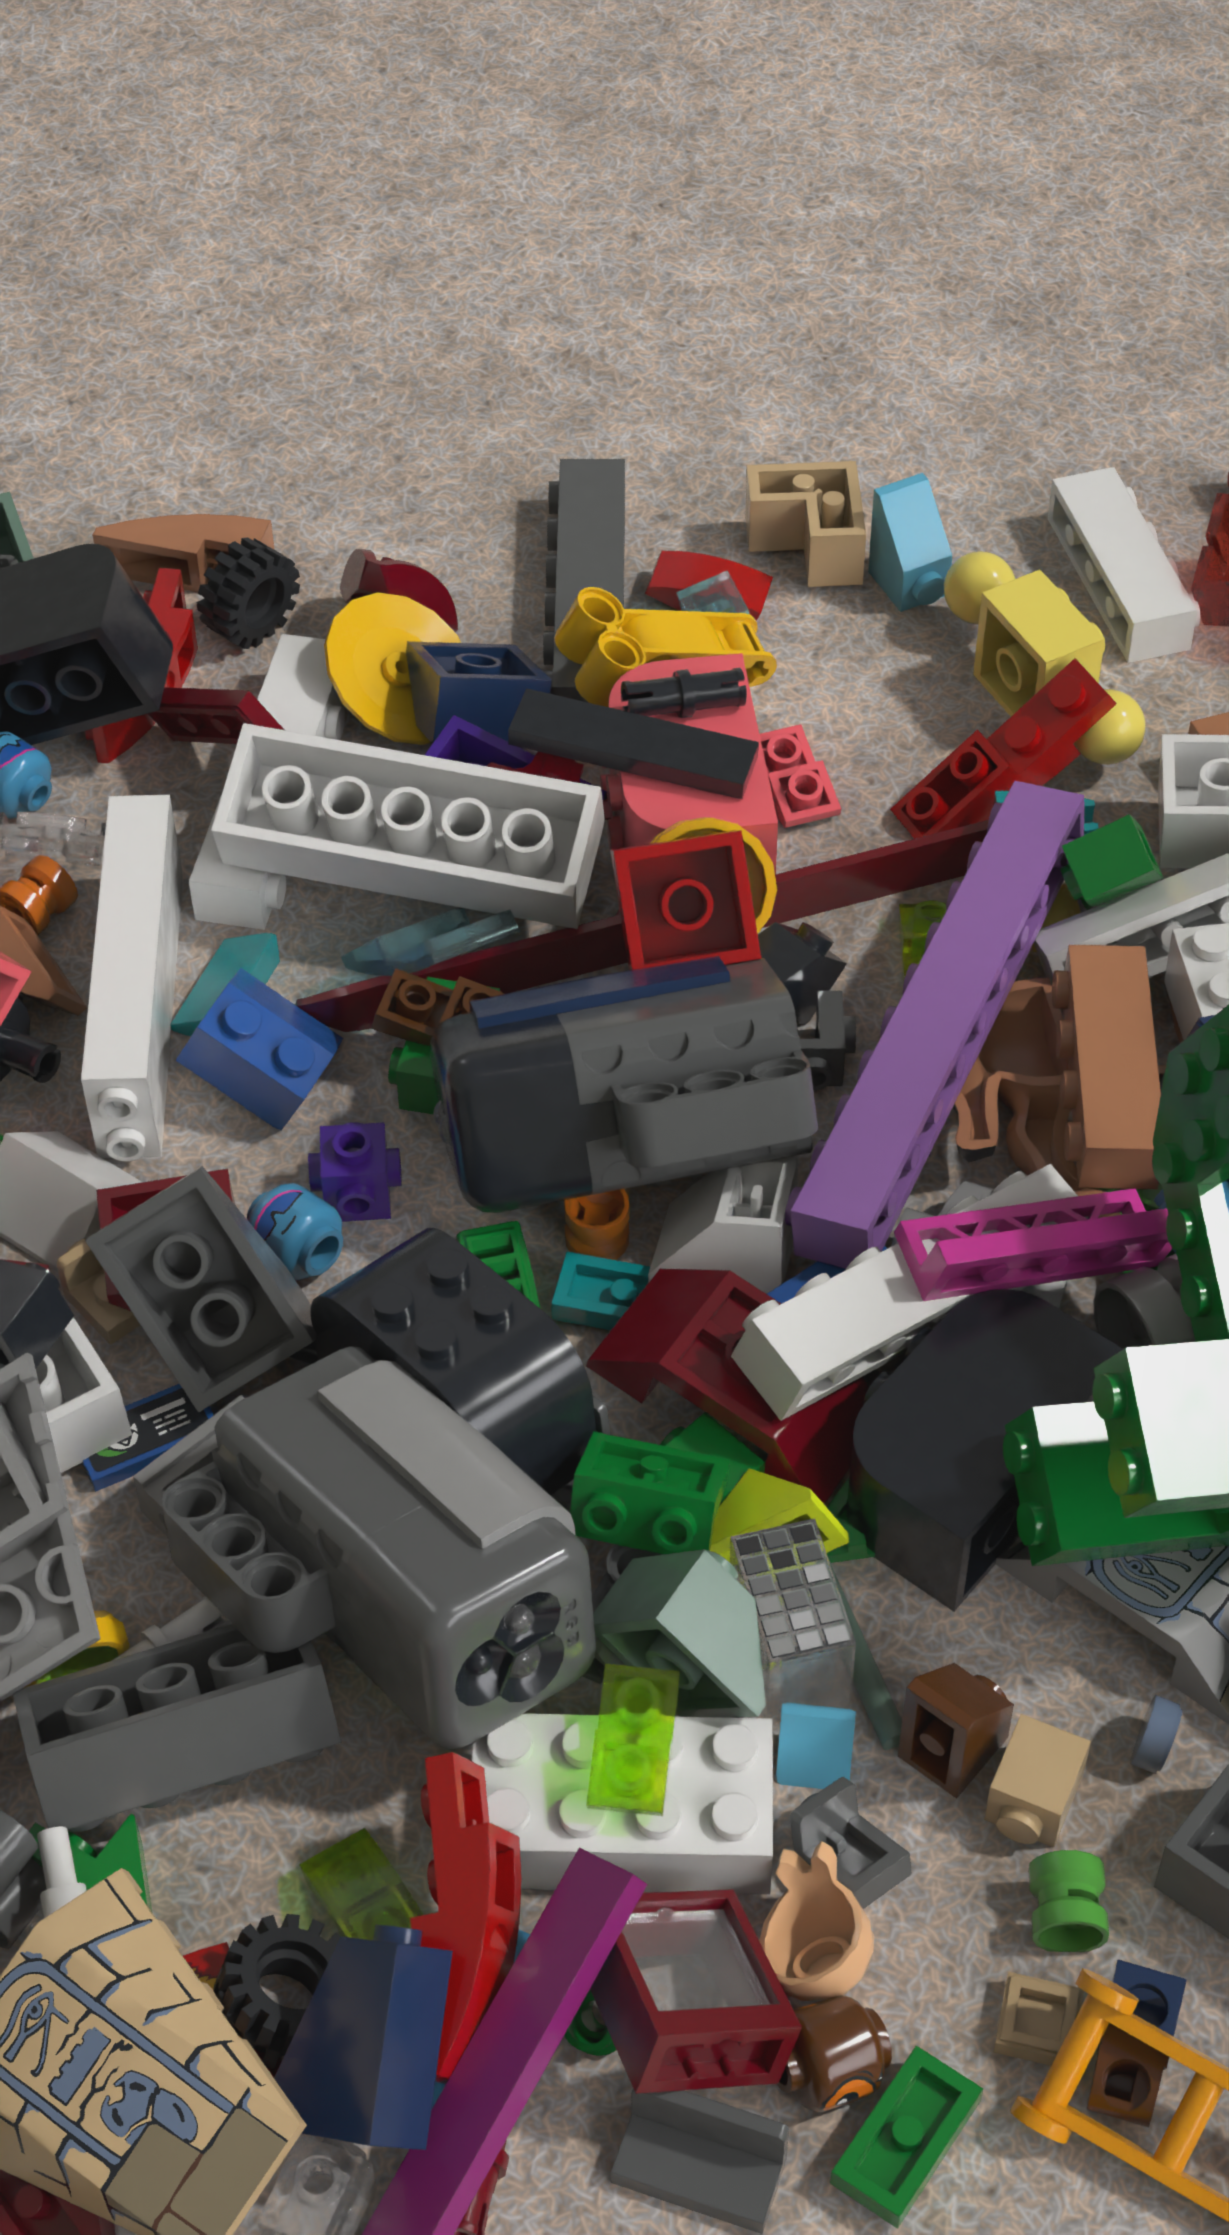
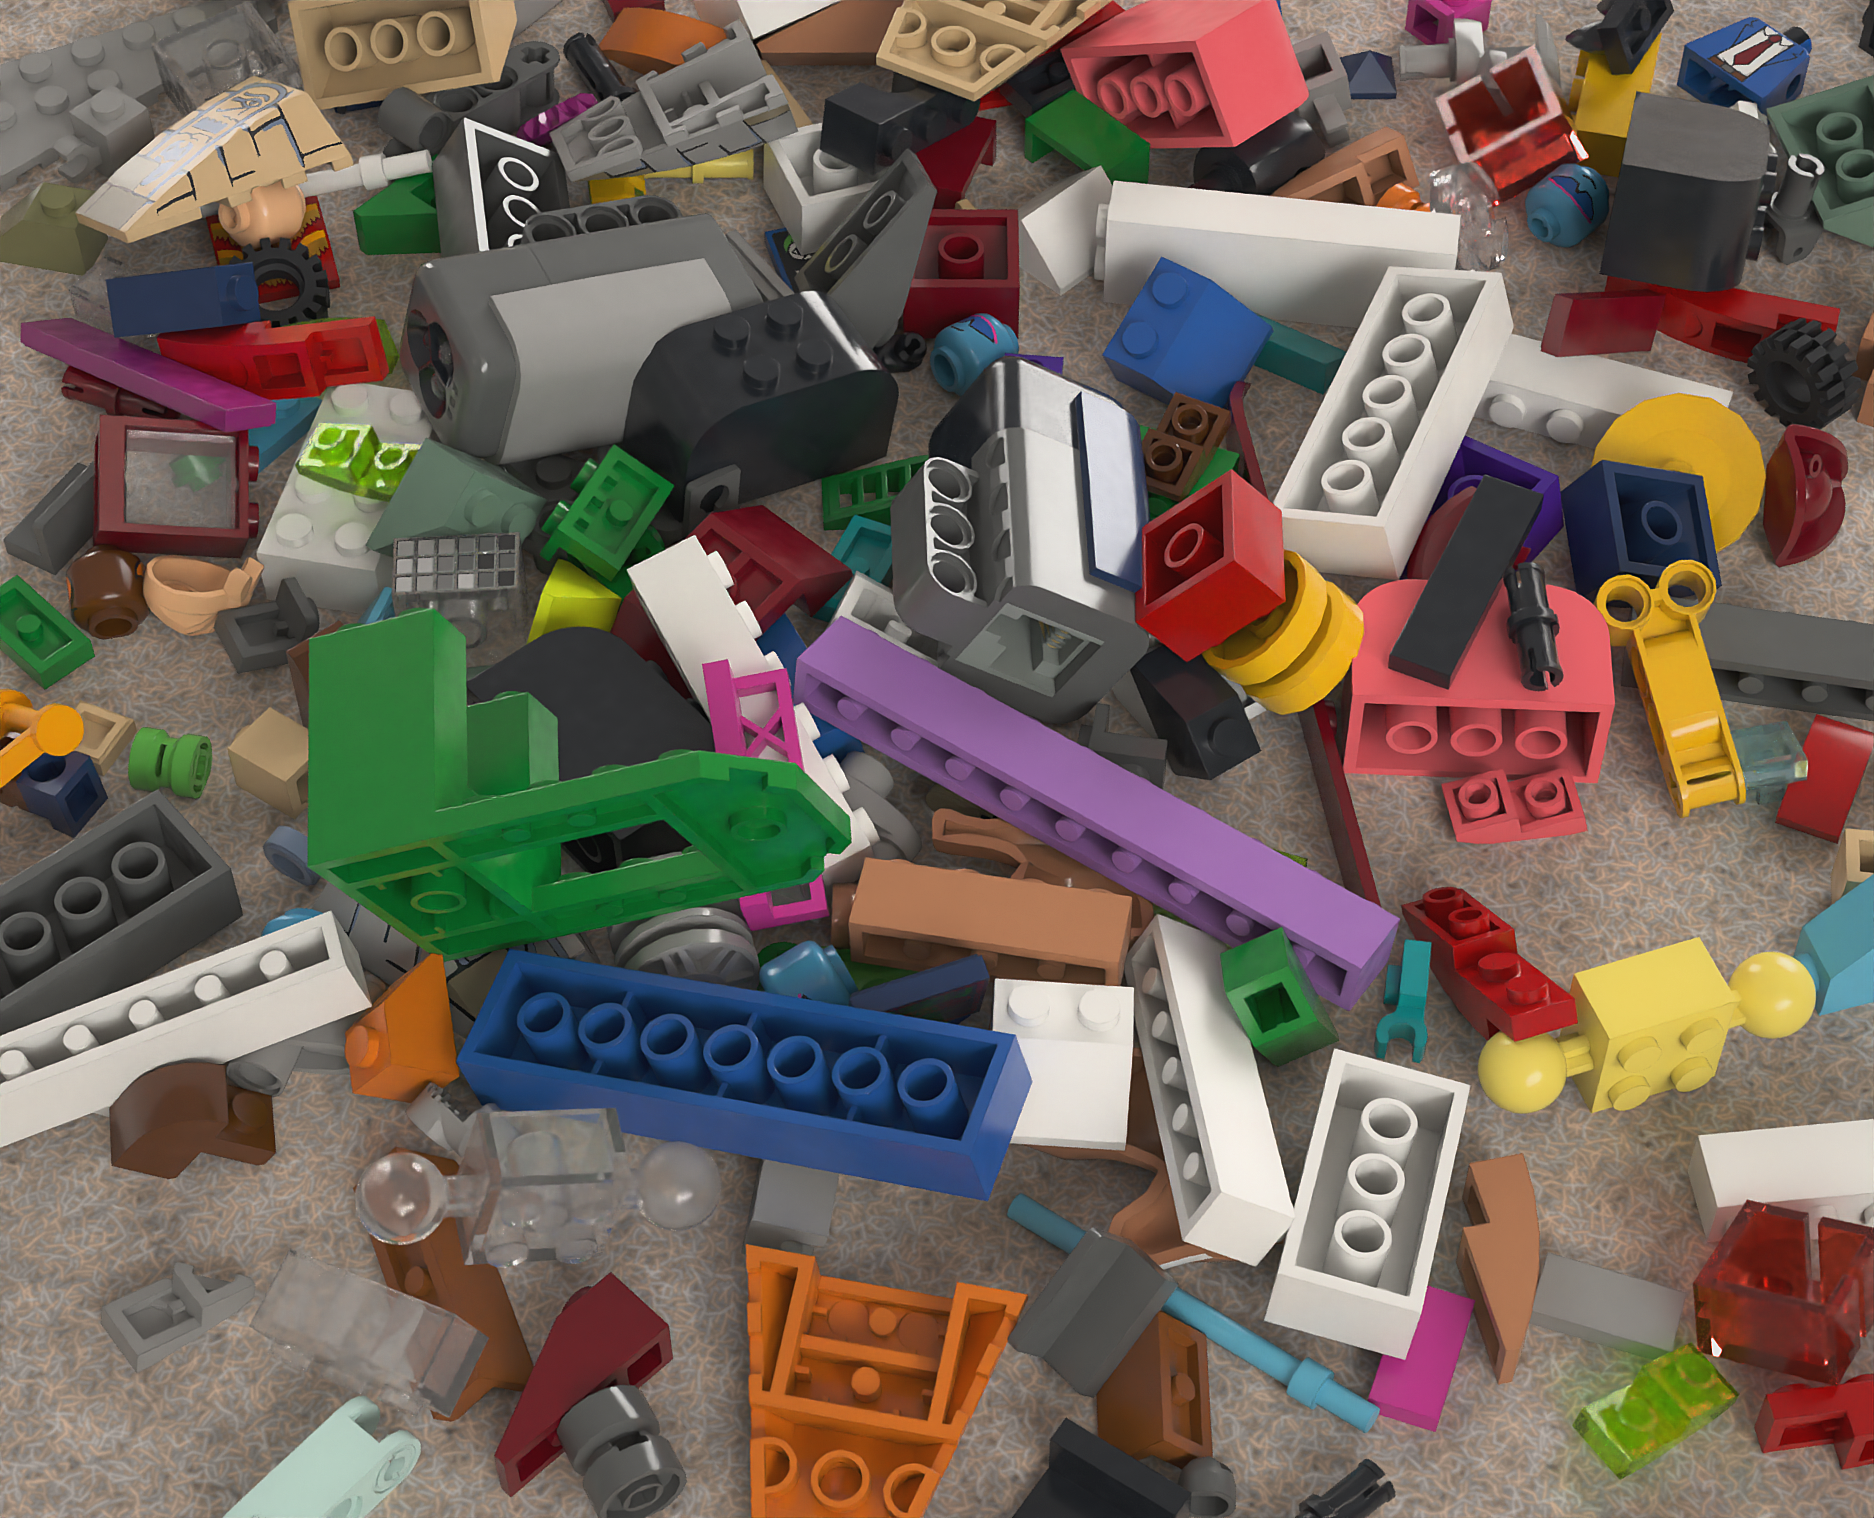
camera: 100 degrees right, 0 degrees up
(429, 943) = (1263, 443): clear light blue slope -> none

